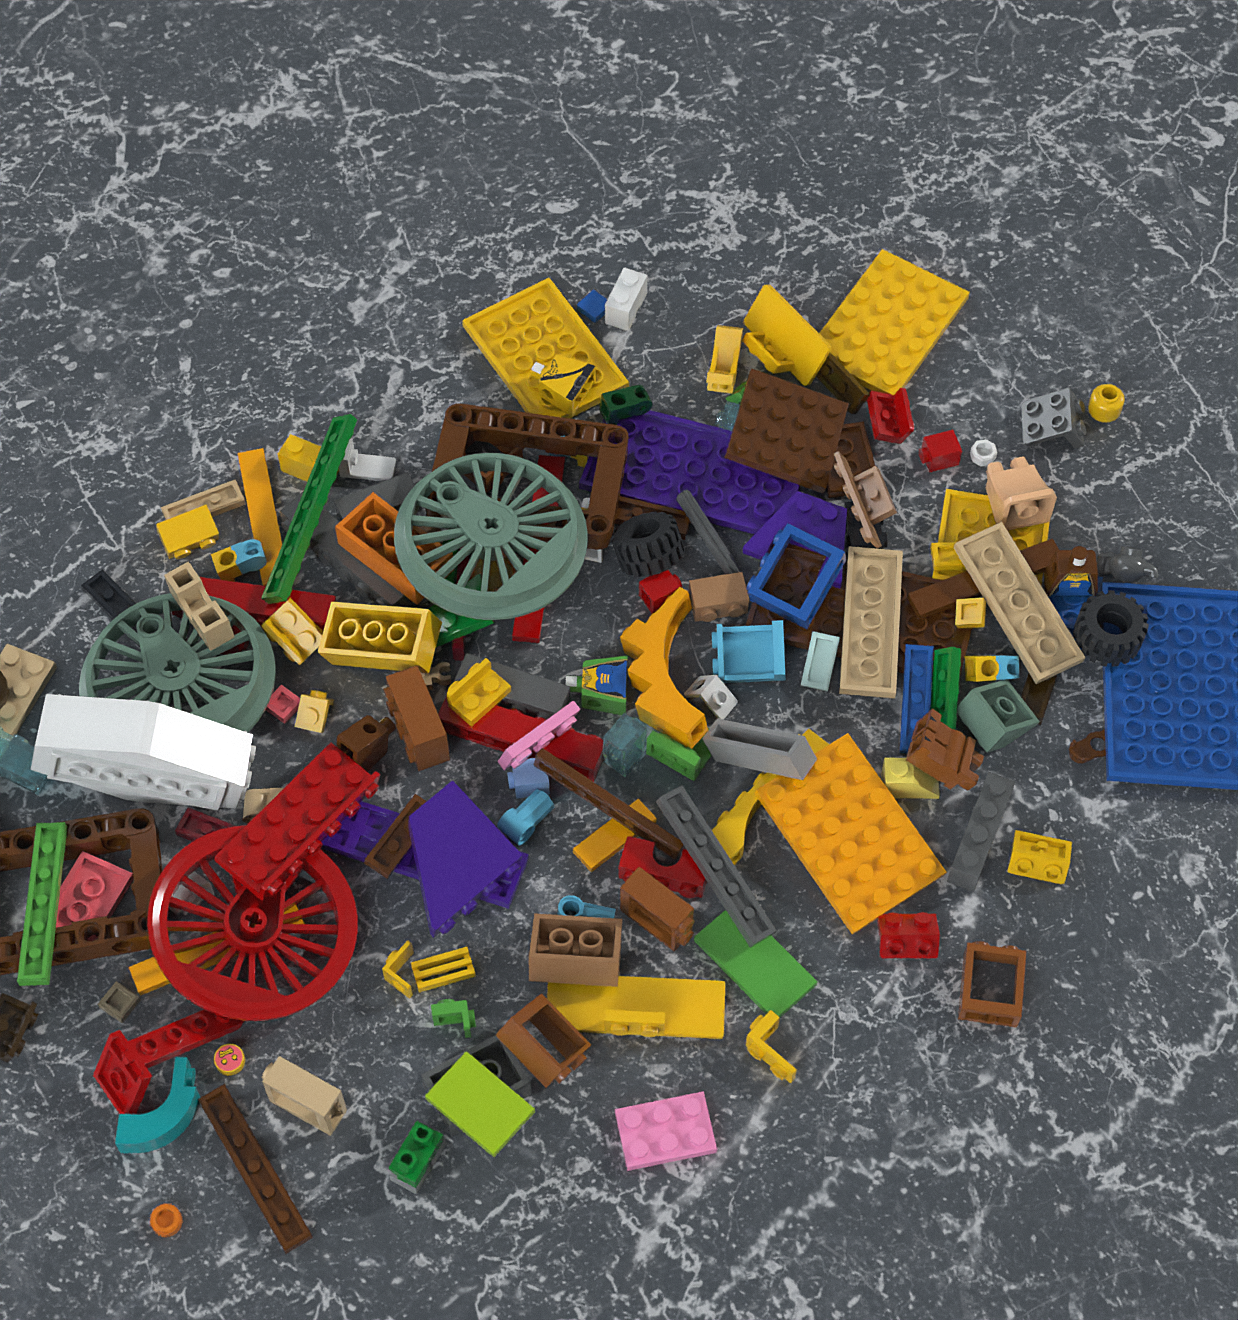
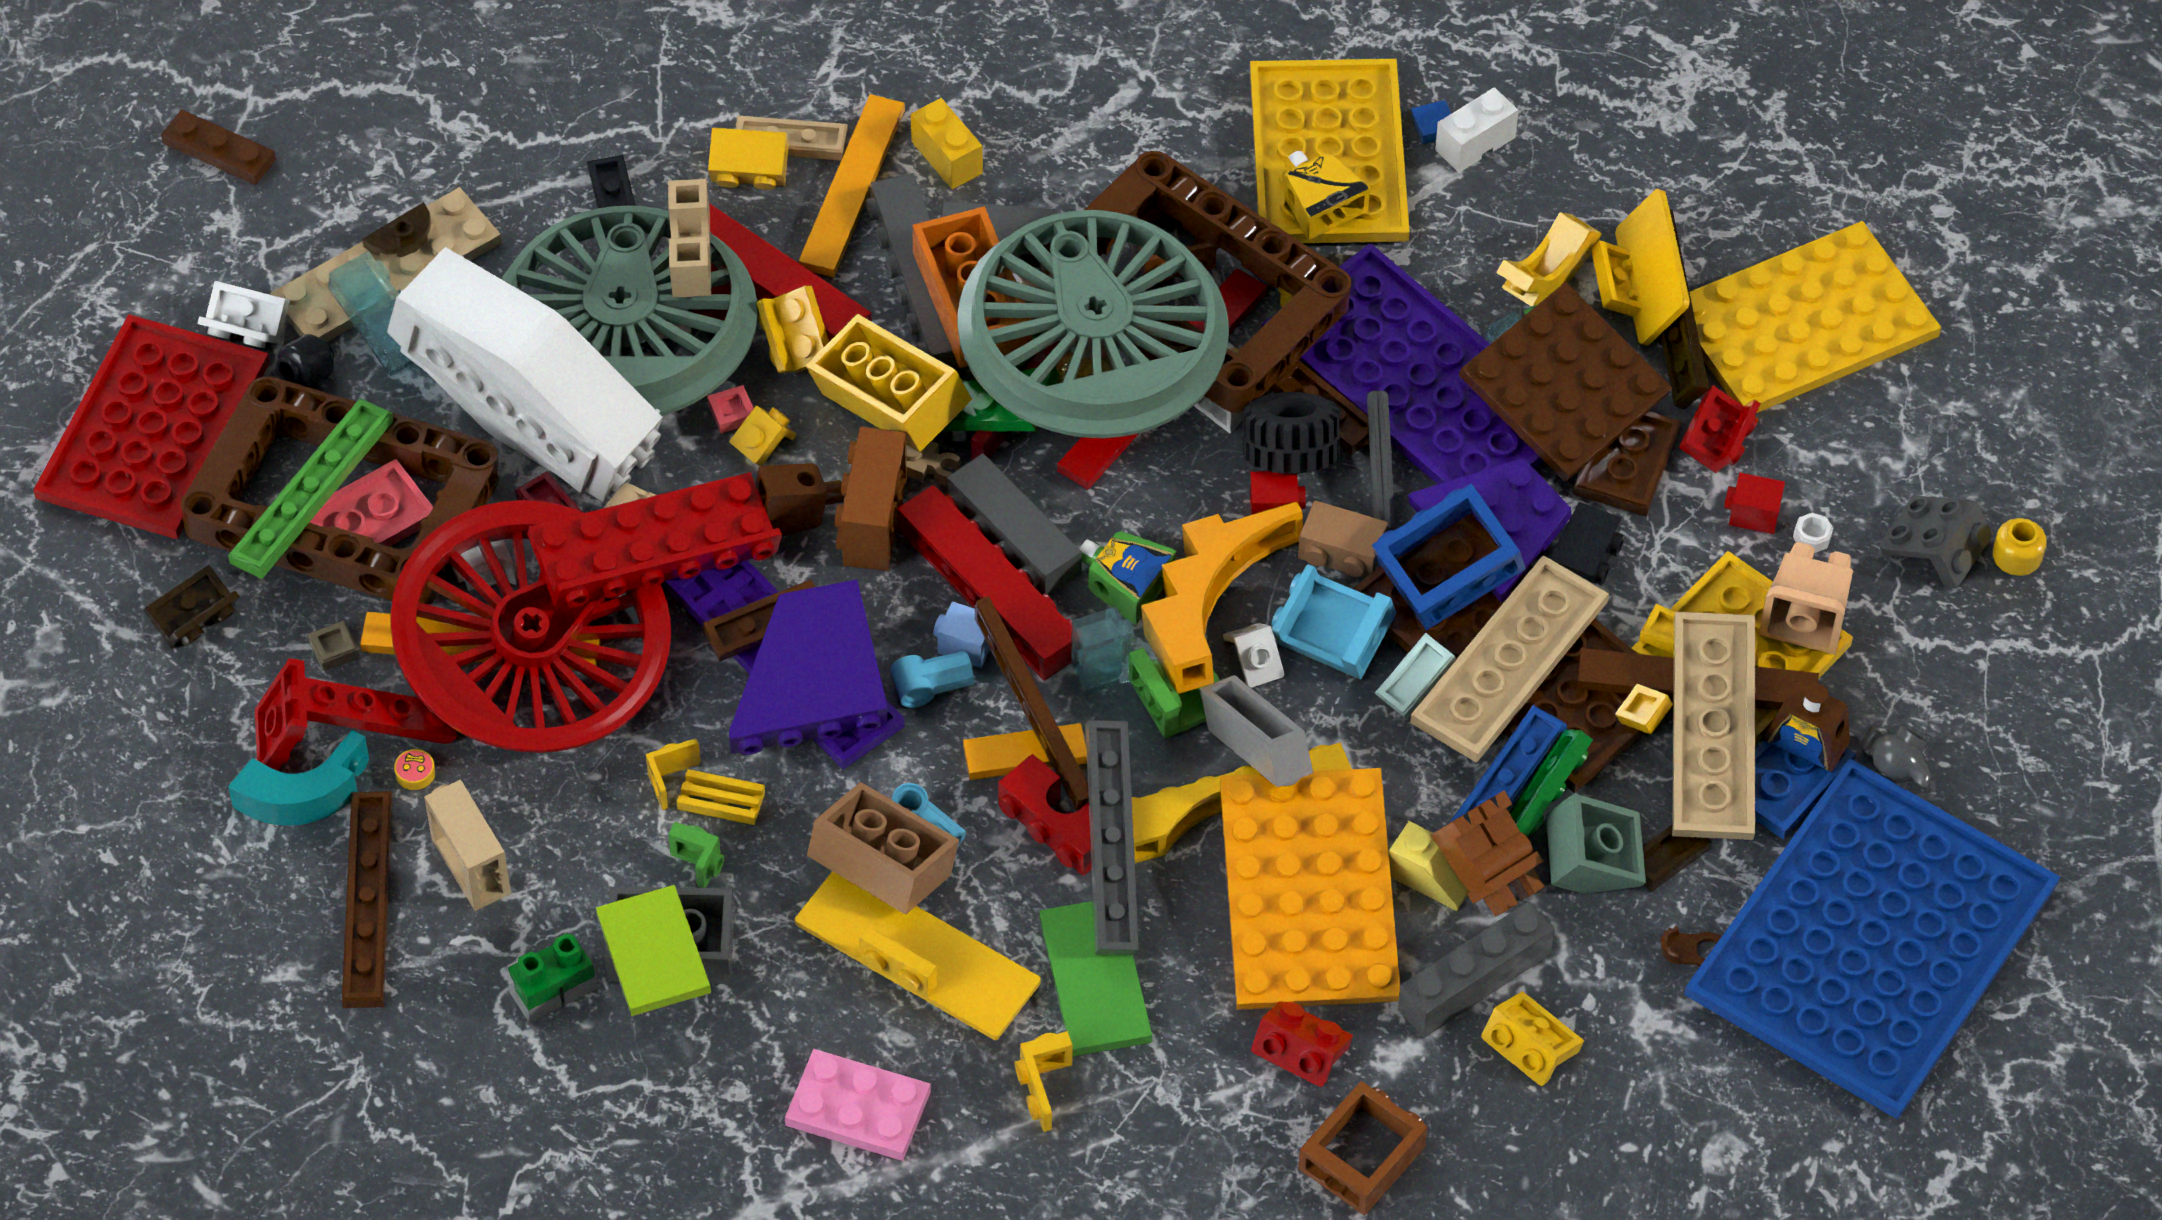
camera: 30 degrees right, 5 degrees down
(166, 1220) = (235, 902): orange tile -> none
(239, 559) = (786, 217): leg -> none
(309, 509) = (912, 186): green plate -> none
(366, 466) = (1009, 179): white bracket -> none
(477, 692) = (961, 501): yellow bracket -> none
(539, 737) = (998, 580): bright pink plate -> none
(556, 1031) = (800, 915): dark orange window -> none
(624, 403) = (1381, 253): dark green leg -> none
(657, 909) = (1010, 852): dark orange window -> none
(869, 497) = (1605, 506): medium nougat bracket -> none
(991, 668) = (1630, 789): yellow leg -> none
(1119, 612) = (1812, 785): black tyre -> none

